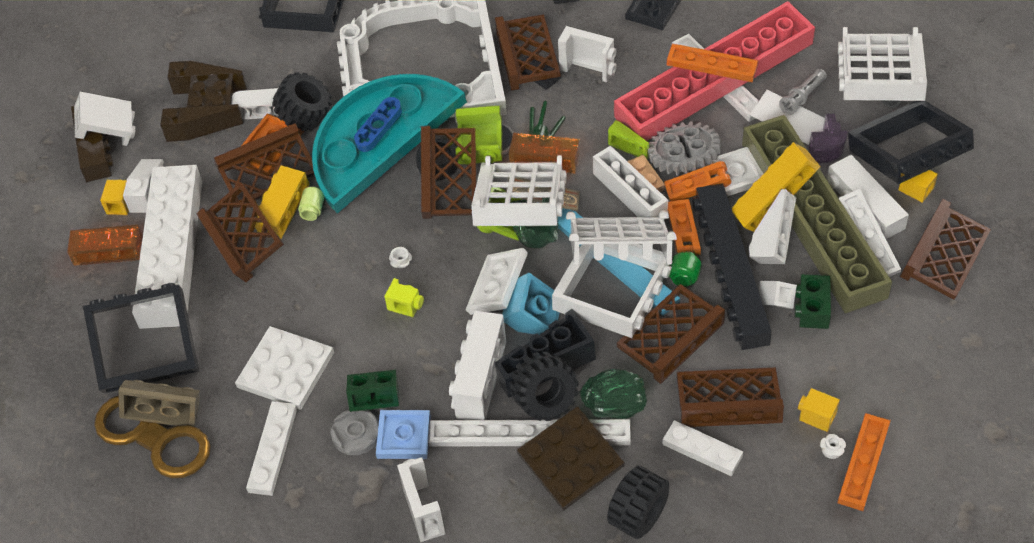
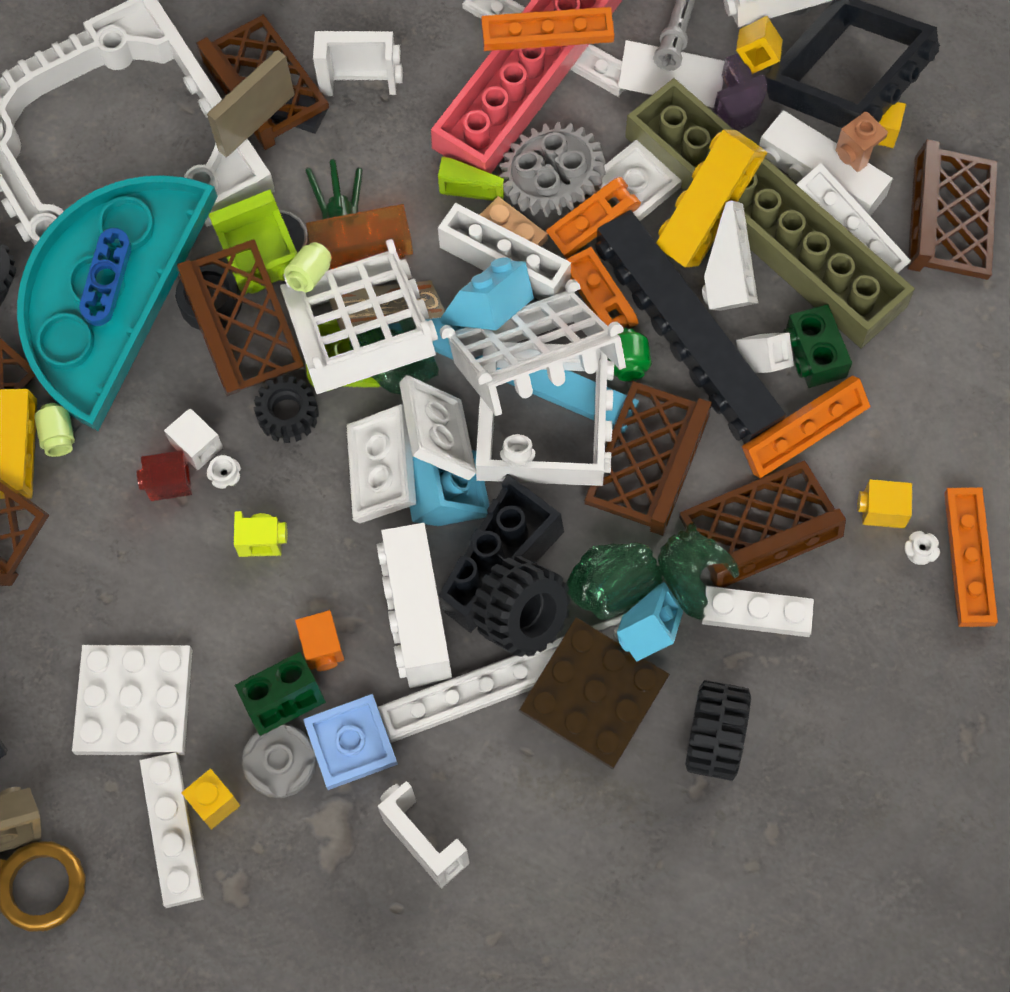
camera: 25 degrees left, 15 degrees up
(302, 436) = (210, 799): none -> yellow brick
(363, 248) = (165, 476): none -> clear red brick
(390, 233) = (195, 439): none -> white panel
(412, 369) = (320, 641): none -> orange brick
(458, 244) = (283, 391): none -> black tyre
(501, 154) = (308, 267): none -> yellowish green brick
(508, 54) = (251, 103): none -> dark tan tile
(539, 268) = (437, 427): none -> white tile
(581, 293) = (517, 450): none -> white plate
(608, 203) = (491, 296): none -> medium azure slope
(624, 424) = (650, 623): none -> medium azure slope
(661, 398) = (682, 563): none -> clear green hair
(785, 346) = (806, 426): none -> orange plate
(853, 113) = (759, 44): none -> yellow brick
(888, 182) = (858, 140): none -> nougat bracket

